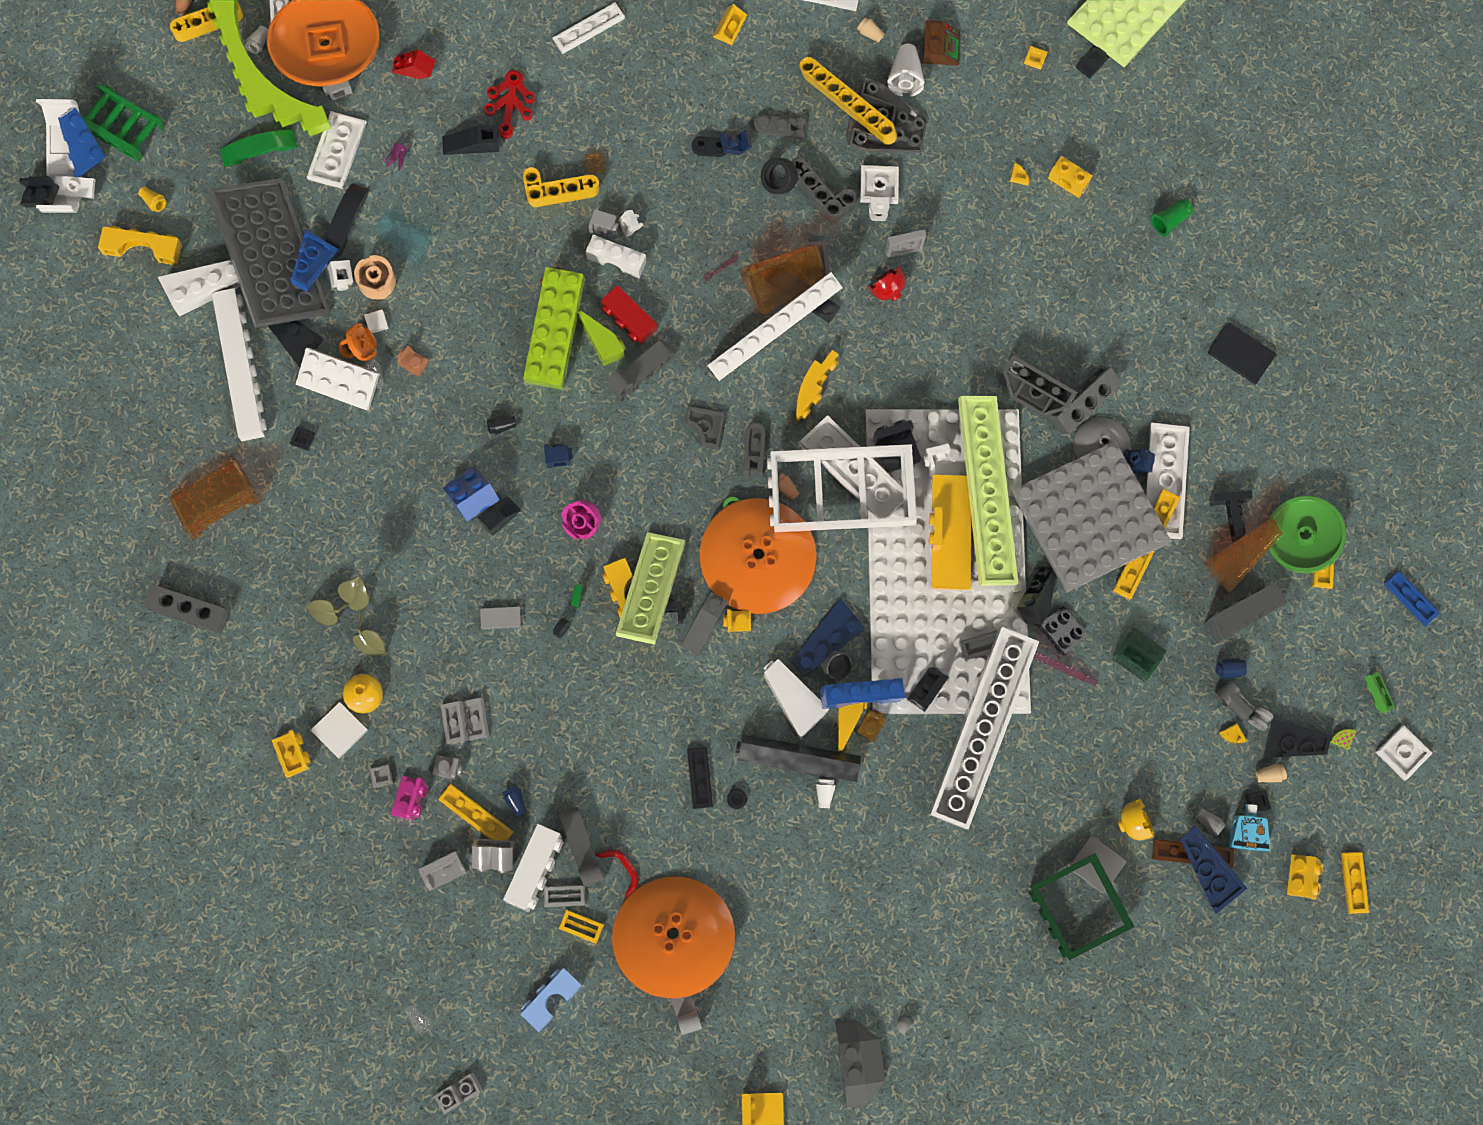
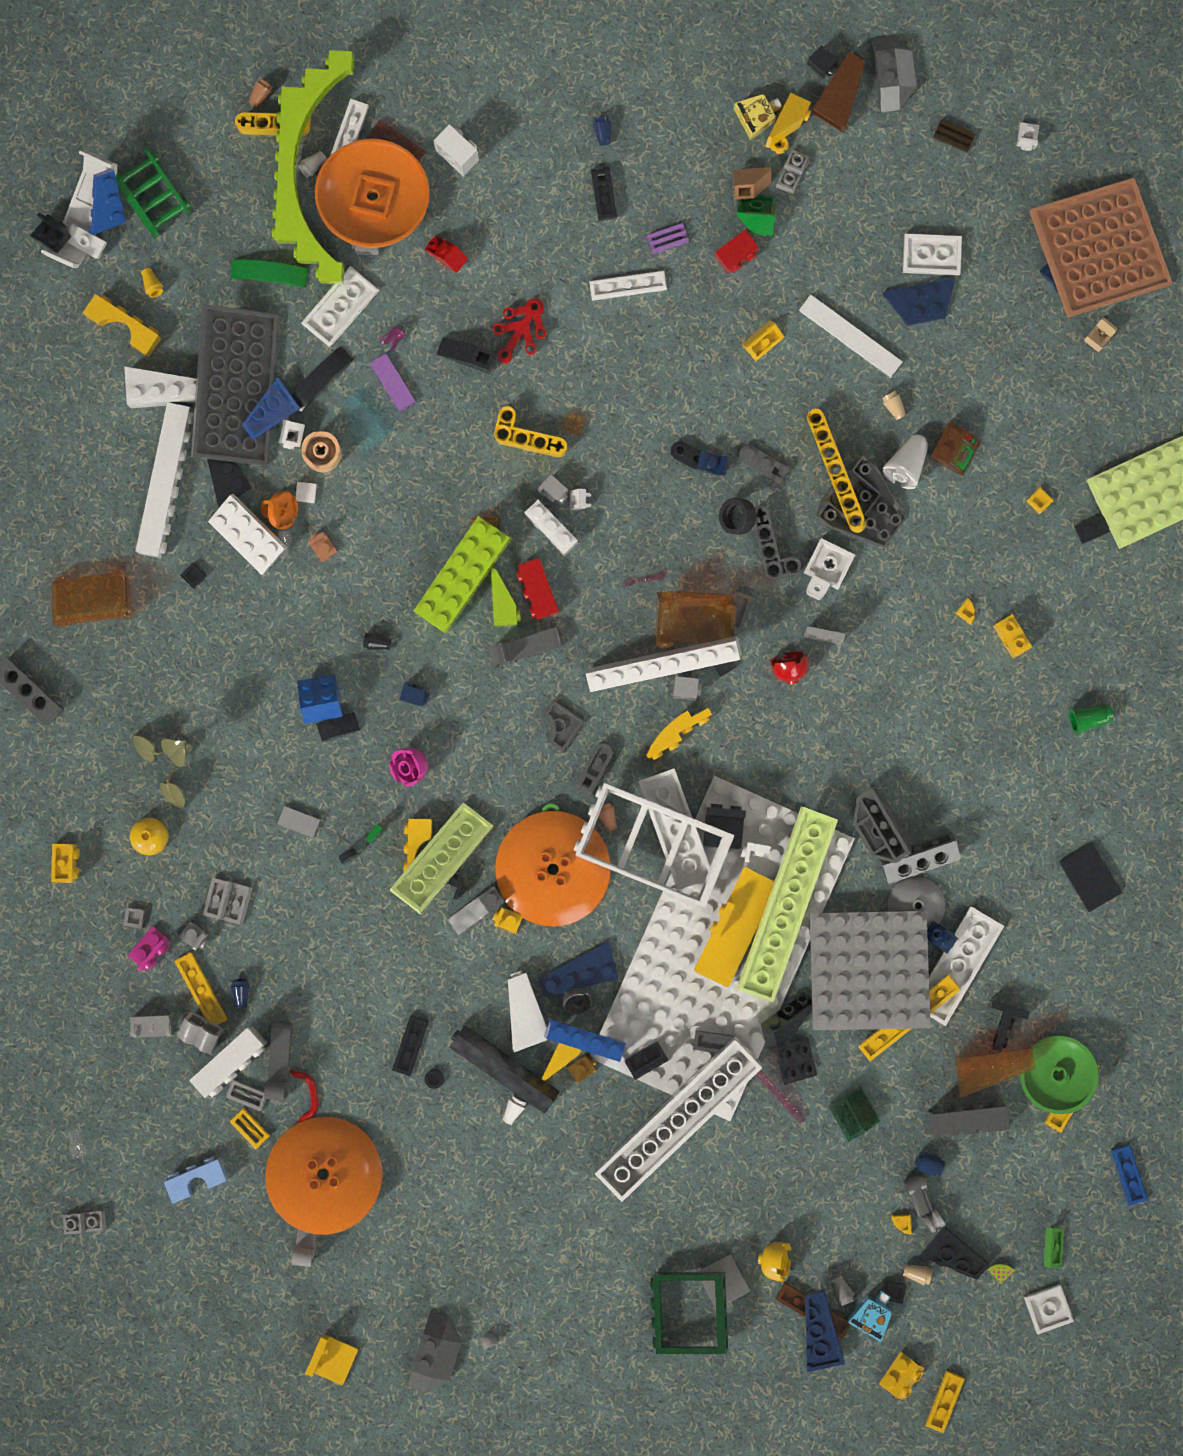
camera: 35 degrees right, 10 degrees up
(339, 730) = (115, 860): white tile -> none
(413, 194) = (392, 382): none -> medium lavender tile
(804, 341) = (686, 688): none -> light grey brick

